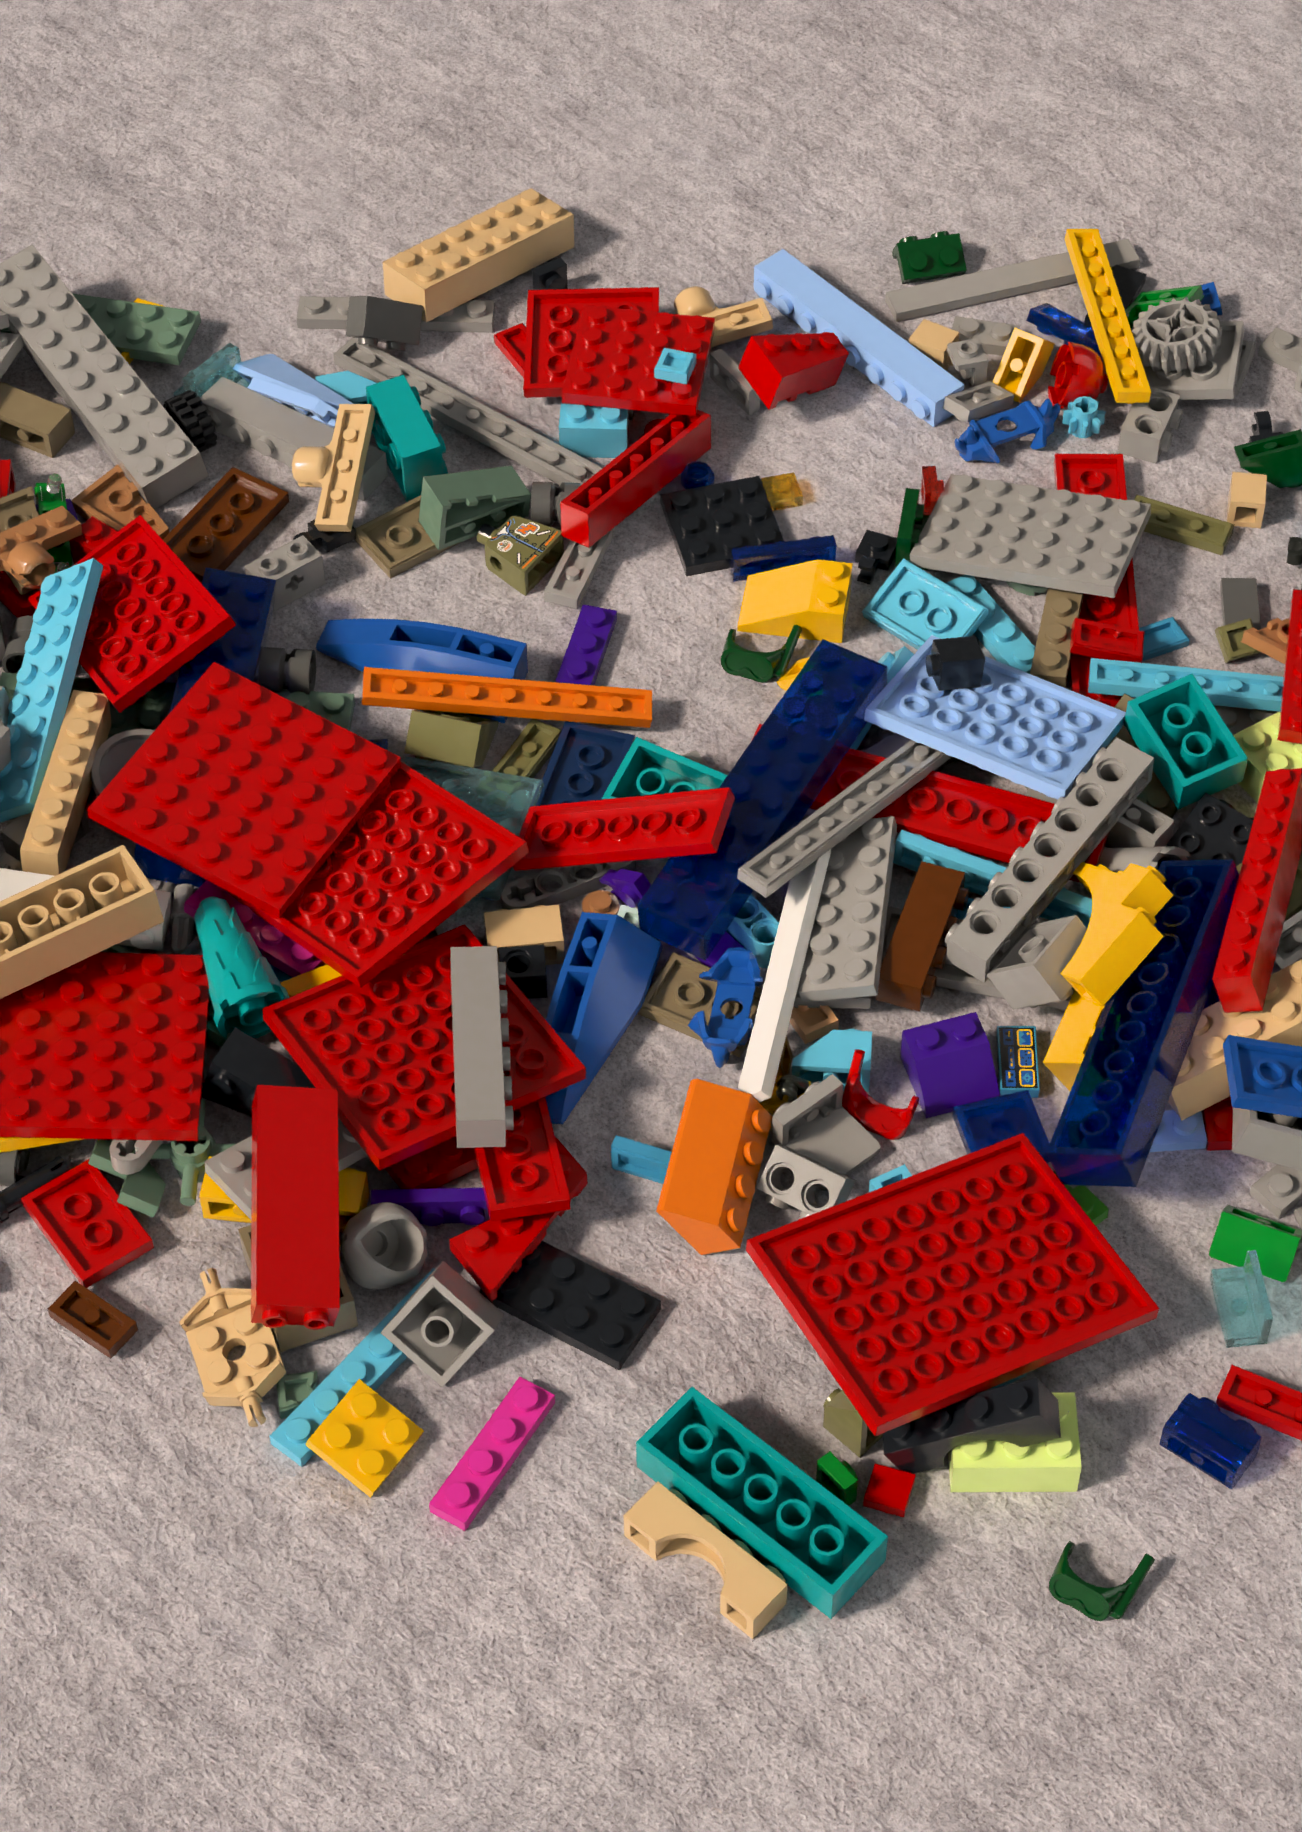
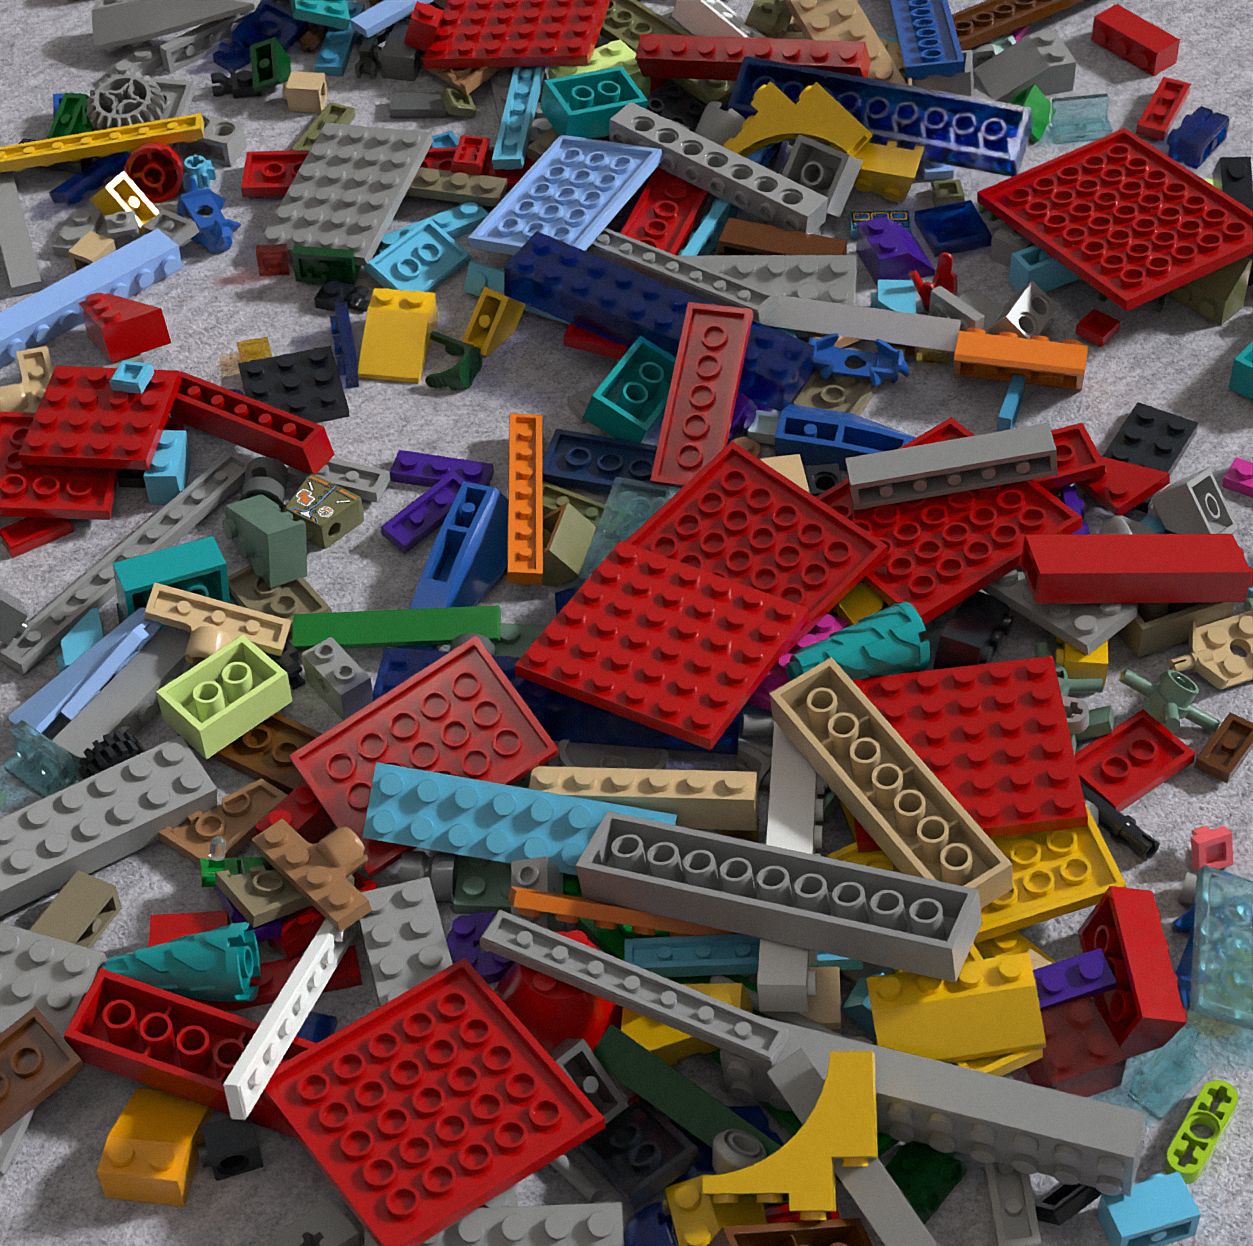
camera: 90 degrees left, 5 degrees down
(136, 1253) = (1170, 699): none -> sand green bar
(247, 480) = (224, 696): none -> yellowish green brick
(341, 613) = (396, 627): none -> green tile
(500, 621) = (423, 514): none -> dark purple plate
(956, 663) = (521, 205): black brick -> none

